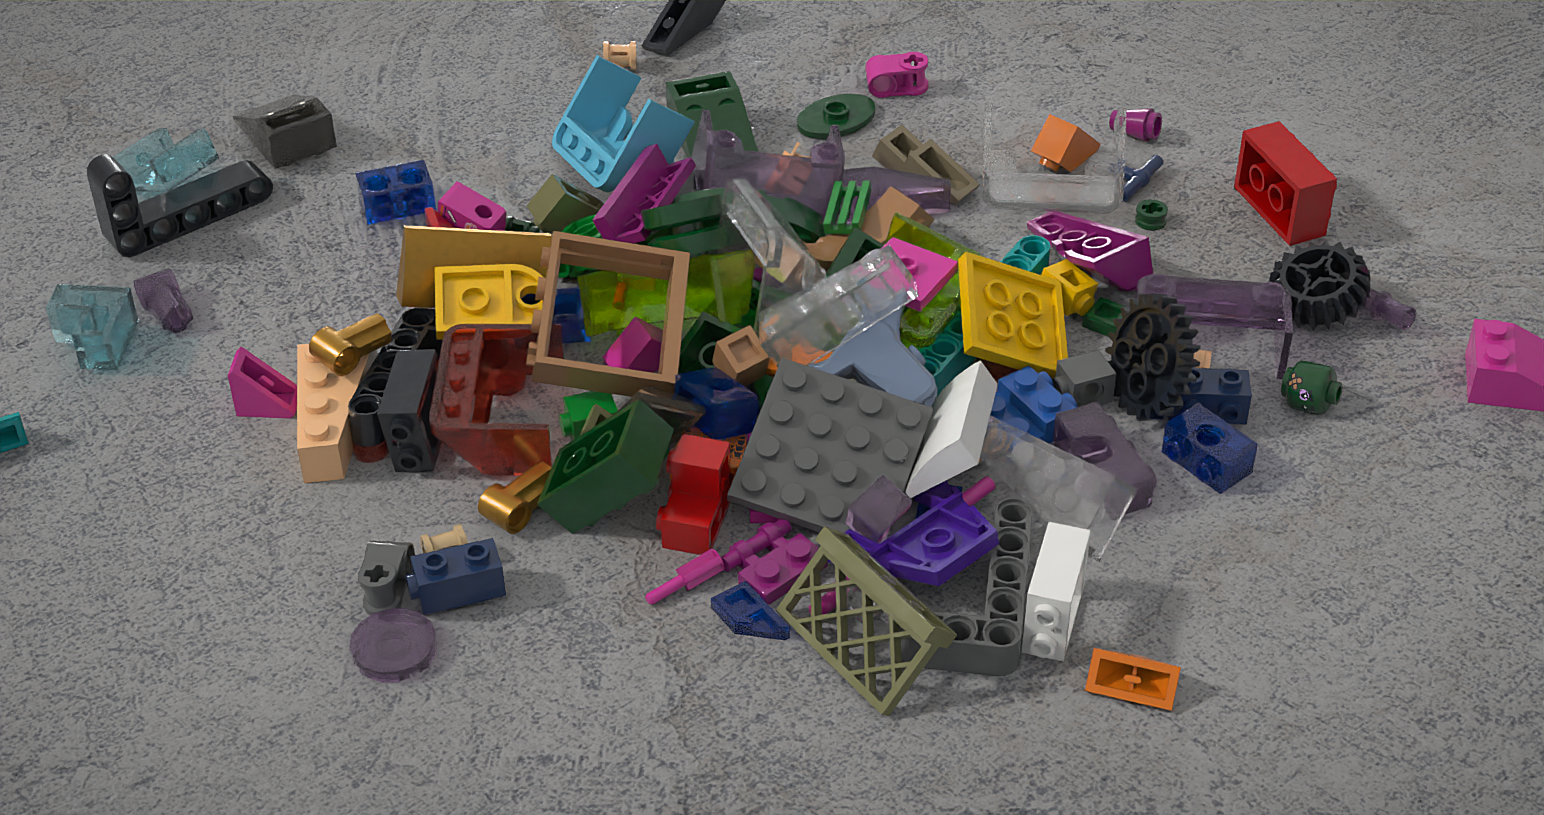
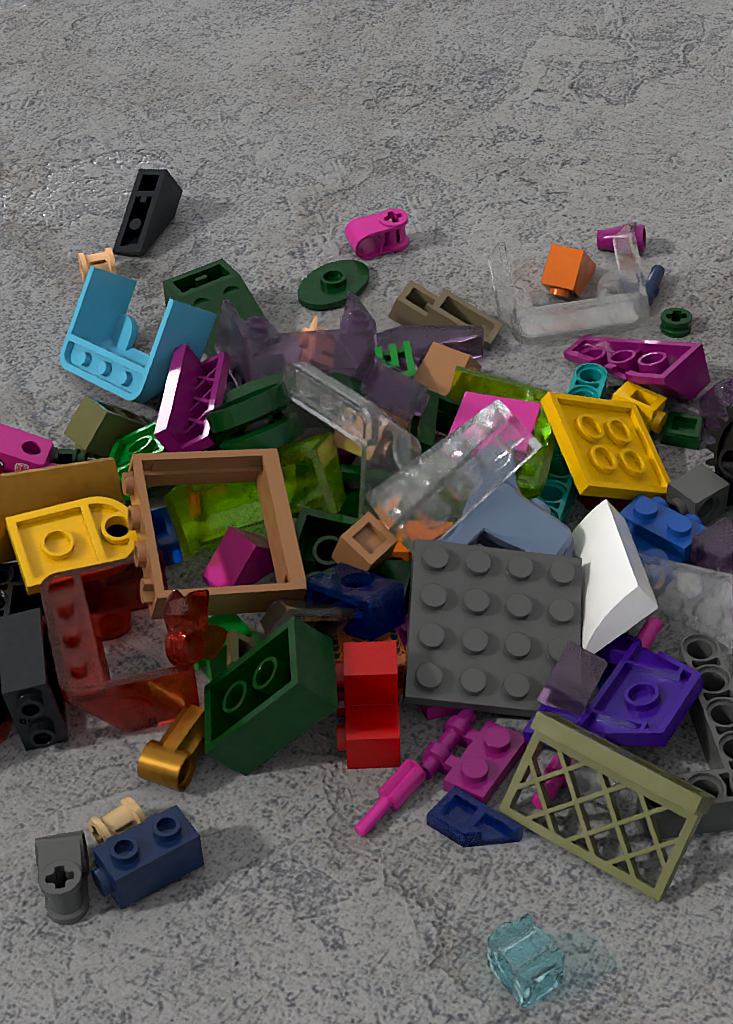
camera: 15 degrees left, 0 degrees up
(393, 644) = (100, 954): clear purple tile -> none
(558, 390) = (188, 629): none -> clear red plate
(740, 731) = (525, 960): none -> clear light blue brick
(823, 221) = (394, 389): none -> clear purple arch

